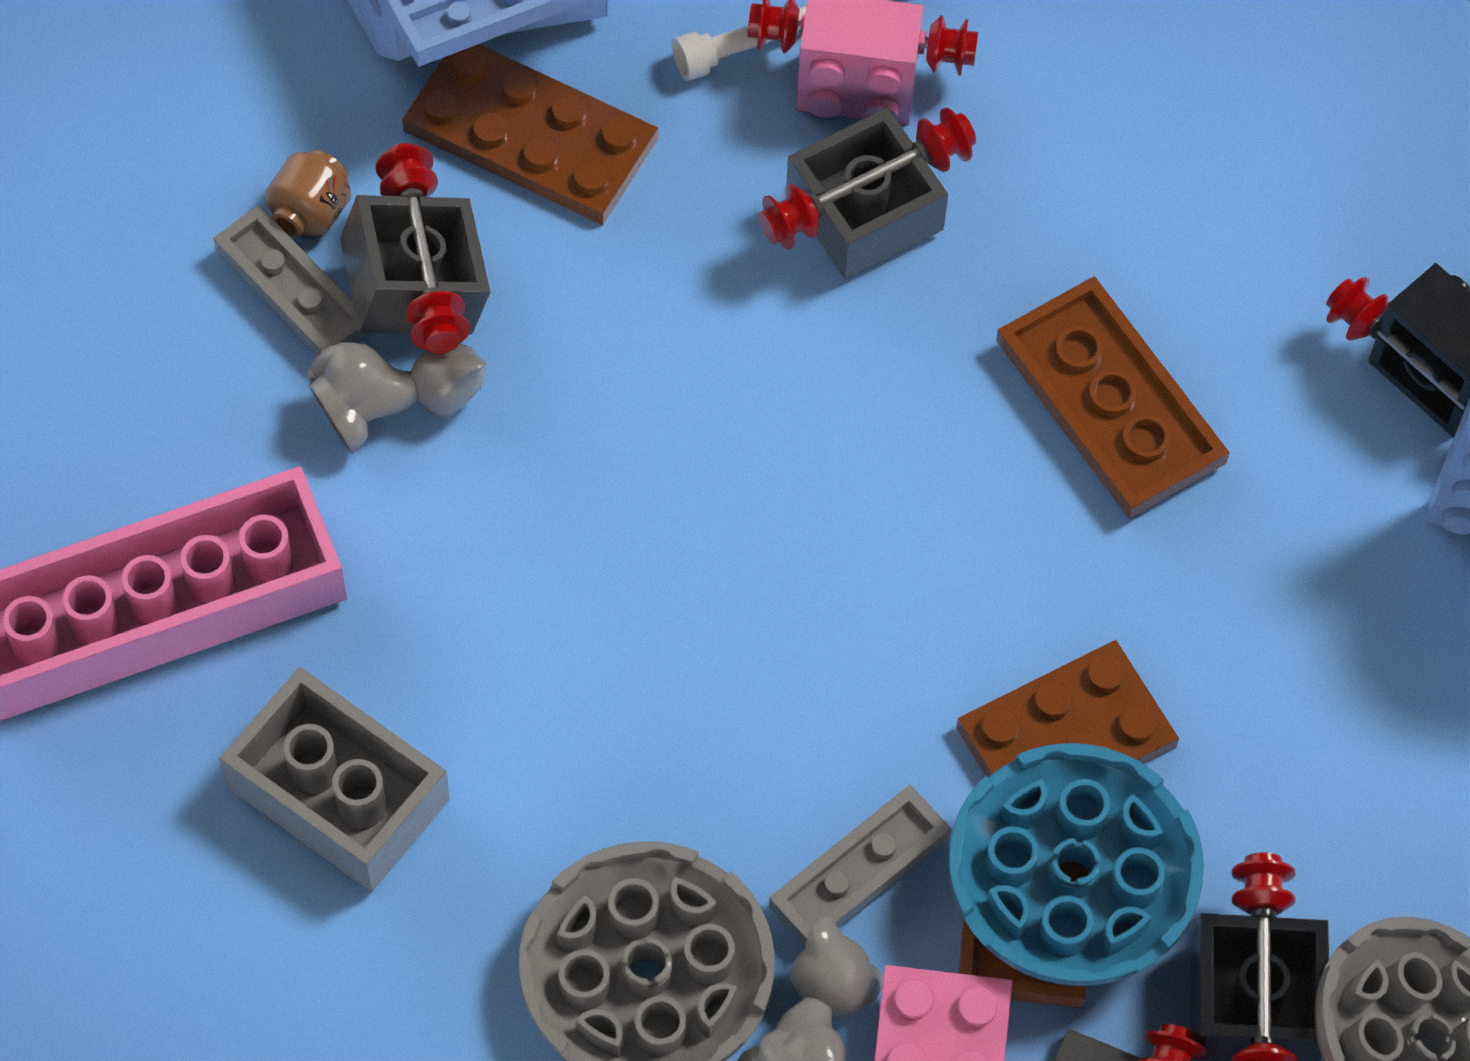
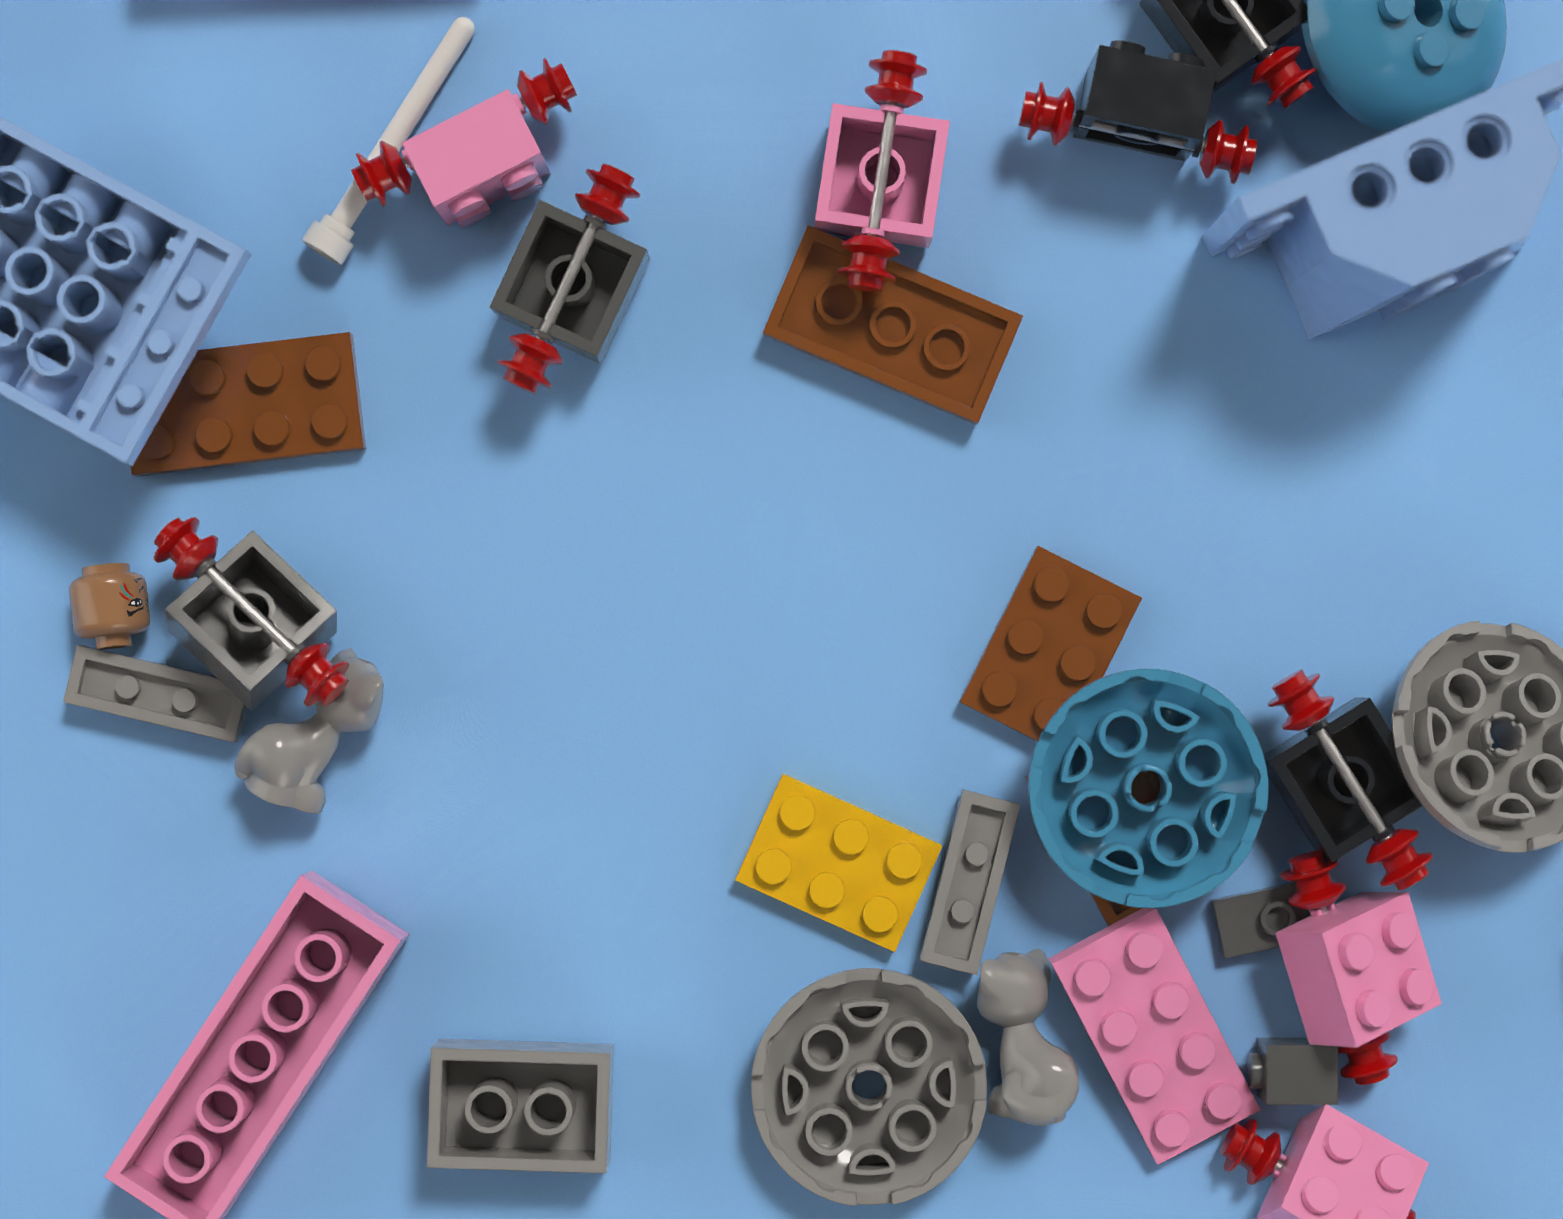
camera: 35 degrees left, 25 degrees up
(756, 782) = (838, 862): none -> yellow plate
(1186, 267) = (882, 173): none -> bright pink brick

